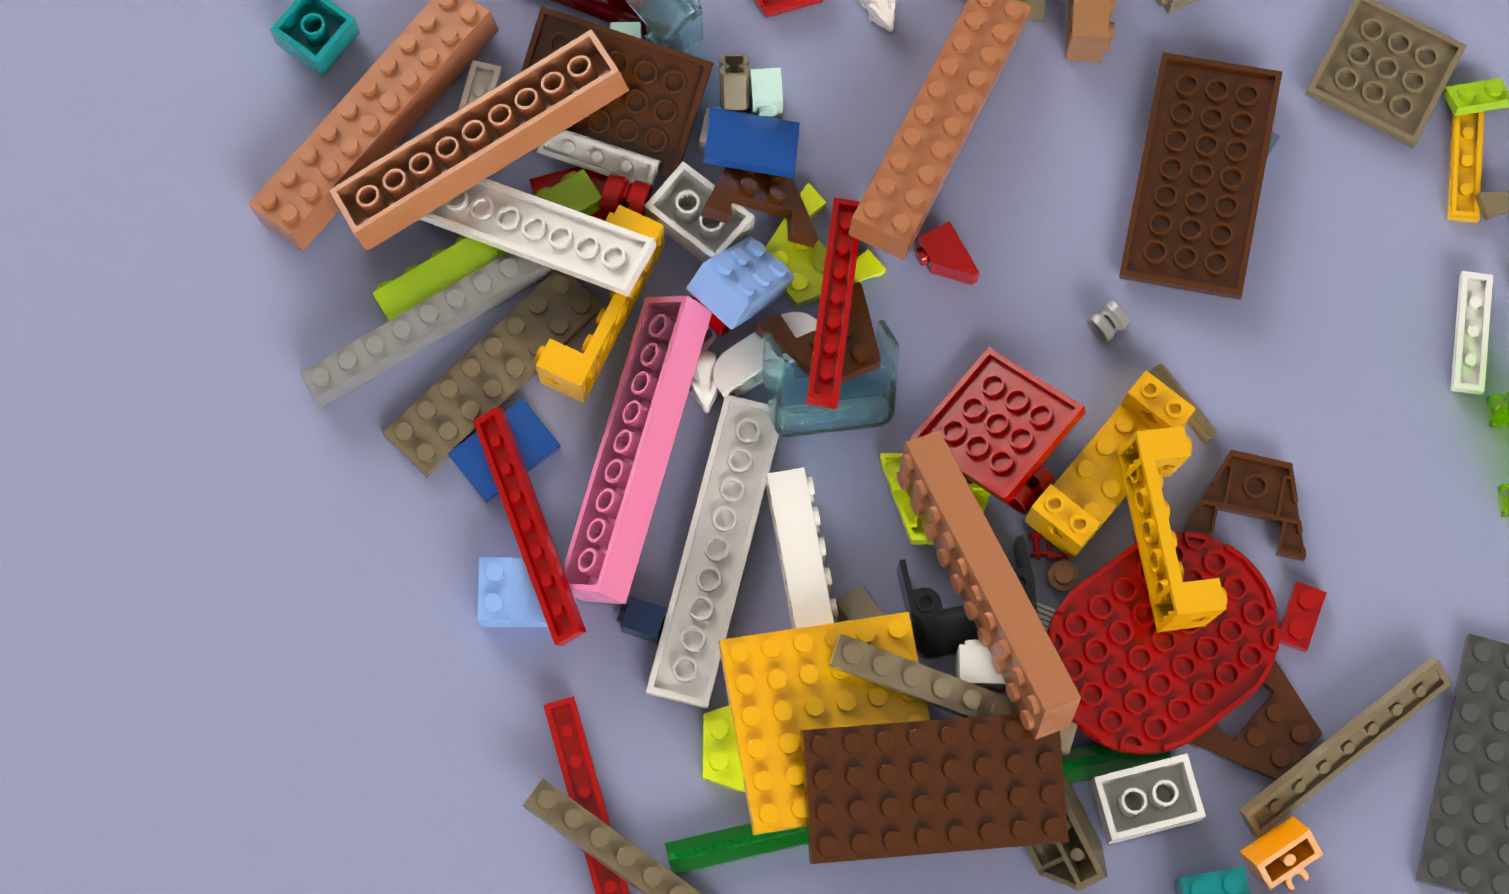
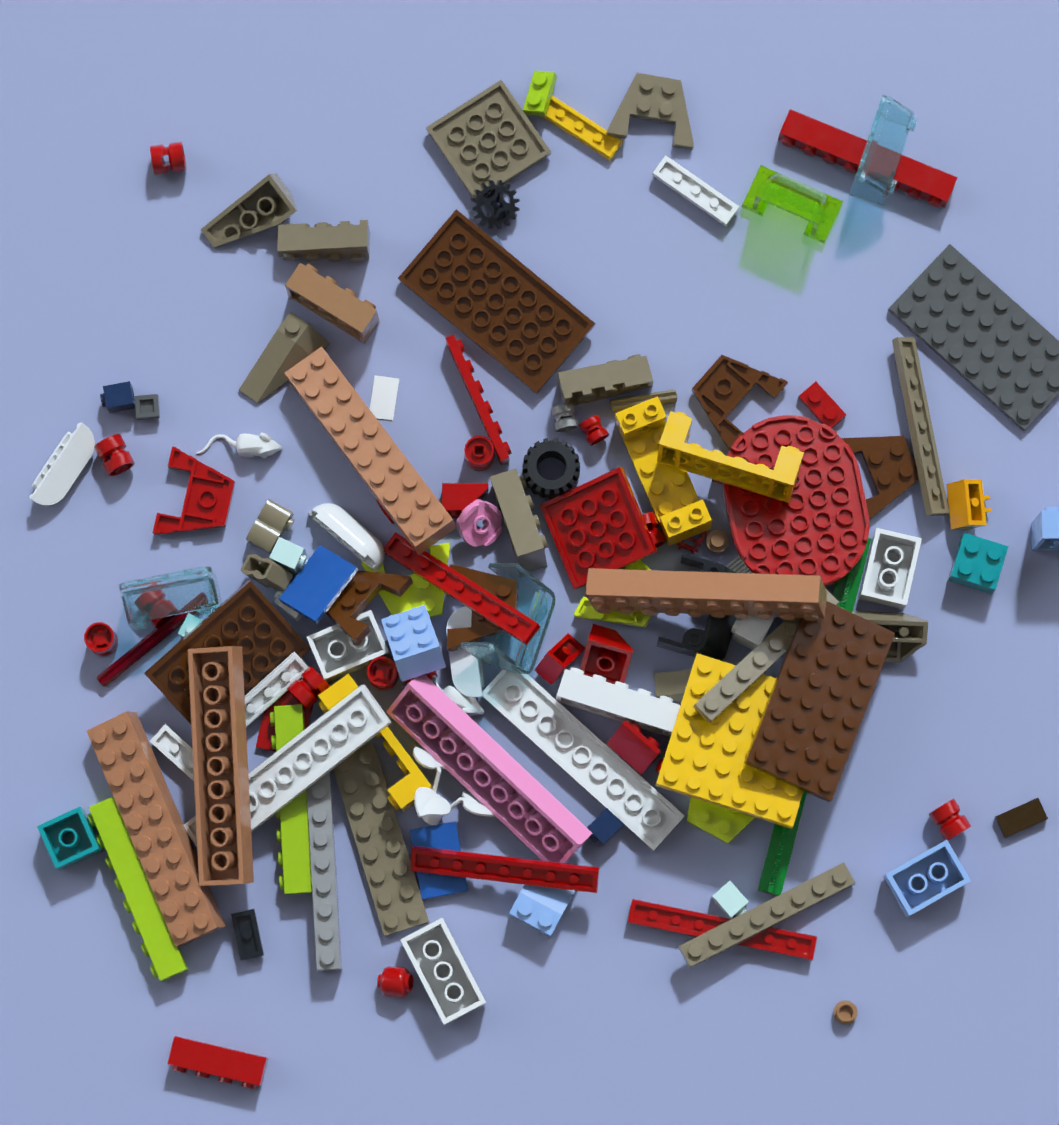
camera: 60 degrees left, 5 degrees up
(141, 322) = (218, 1061): none -> red brick
(229, 204) = (139, 896): none -> lime brick
(305, 280) = (247, 934): none -> black plate
(333, 473) = (395, 982): none -> red head
(372, 519) = (443, 971): none -> white brick
(559, 407) = (431, 805): none -> white plant
(633, 815) = (730, 900): none -> light aqua brick
(683, 267) = (382, 673): none -> red wheel
(756, 601) = (634, 747): none -> red slope
(798, 61) = (270, 526): none -> dark tan brick
(819, 461) = (559, 658): none -> red slope
(833, 154) = (350, 533): none -> white brick
(850, 513) = (606, 655): none -> red slope
(931, 272) = (471, 515): none -> bright pink plate
(955, 332) = (519, 520): none -> dark tan wedge
(1009, 246) = (479, 453): none -> red wheel
(1014, 112) = (384, 397): none -> white sticker
(1046, 314) = (545, 450): none -> black tyre
(1066, 223) = (475, 390): none -> red plate
(1113, 363) = (593, 430): none -> red wheel
(1179, 342) = (604, 380): none -> dark tan wedge
(1318, 126) = (493, 214): none -> black gear

